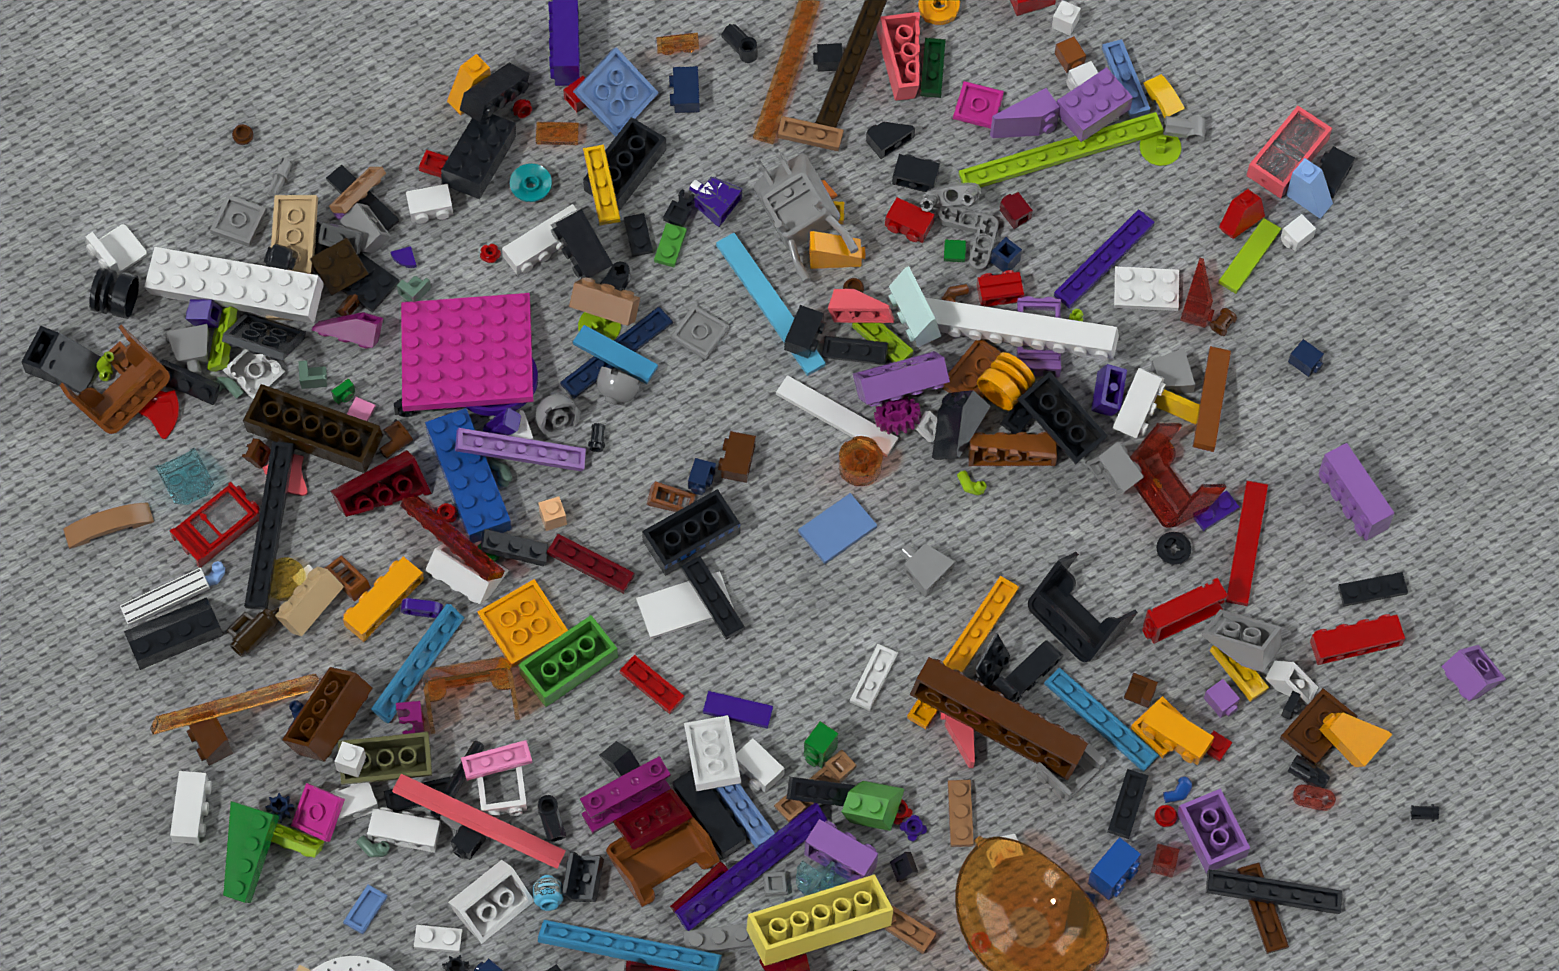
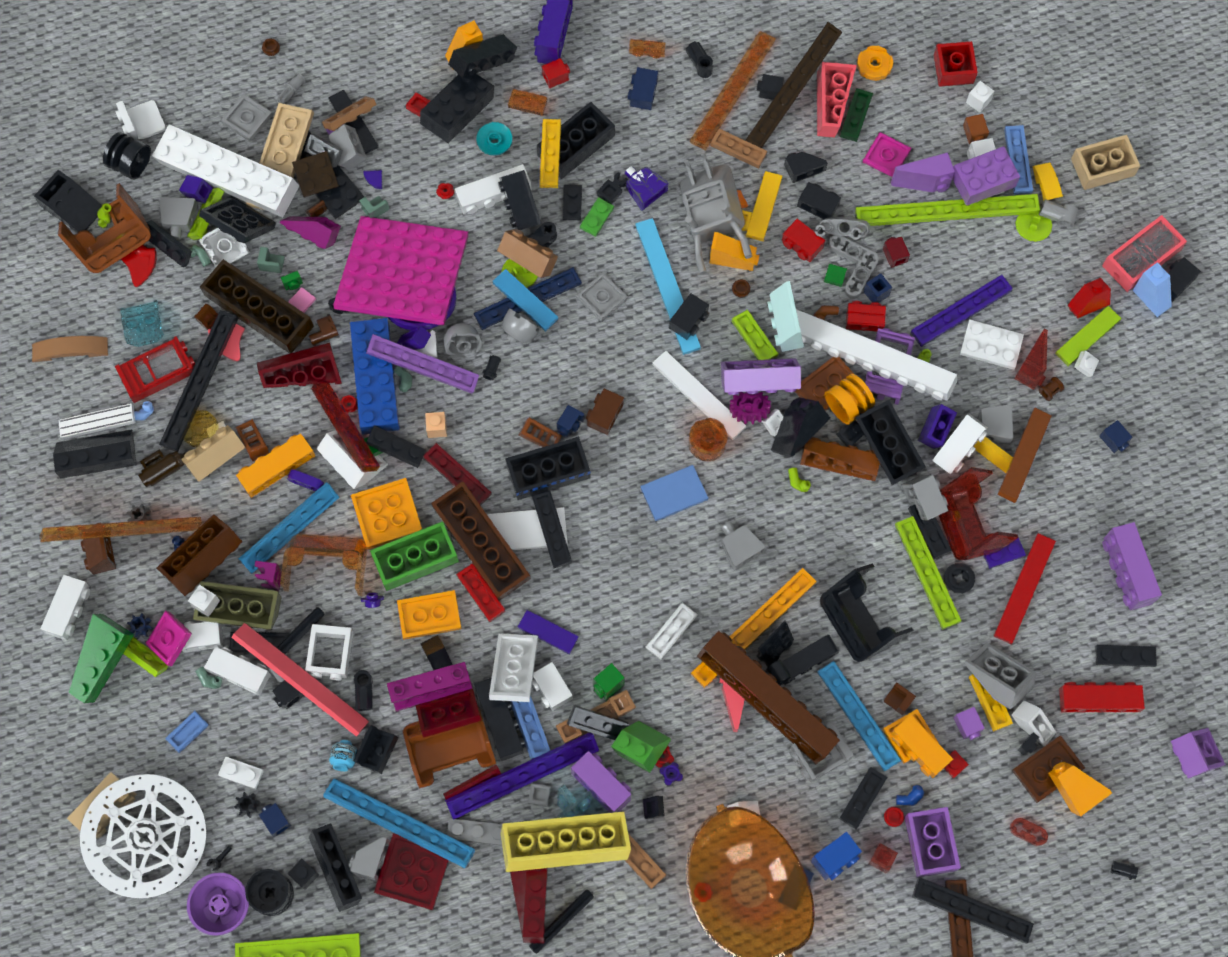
camera: 15 degrees right, 5 degrees up
(242, 682) = (136, 511): none -> dark grey gear
(280, 257) = (268, 156): black head -> none
(429, 203) = (406, 138): white brick -> none
(491, 901) = (293, 751): white slope -> none
(496, 760) = (329, 629): bright pink tile -> none
(520, 106) = (503, 73): red plate -> none
(533, 719) = (372, 600): none -> dark purple plate
(601, 721) = (429, 614): none -> light orange plate
(615, 91) = (584, 77): medium blue plate -> none
(638, 626) = (481, 541): none -> reddish brown brick
(855, 191) = (764, 206): none -> yellow tile
(855, 350) = (728, 342): black tile -> none
(857, 307) = (736, 304): coral slope -> none
(960, 813) = (715, 770): medium nougat plate -> none
(1131, 507) = (932, 534): none -> black plate
(1136, 548) = (928, 572): none -> lime plate
(1184, 611) = (954, 638): red door -> none
(1222, 60) = (1105, 162): none -> tan brick
(1255, 286) = (1086, 363): none -> white plate
(1297, 233) = (1134, 325): white brick -> none
(1308, 772) = (1029, 808): black hinge -> none

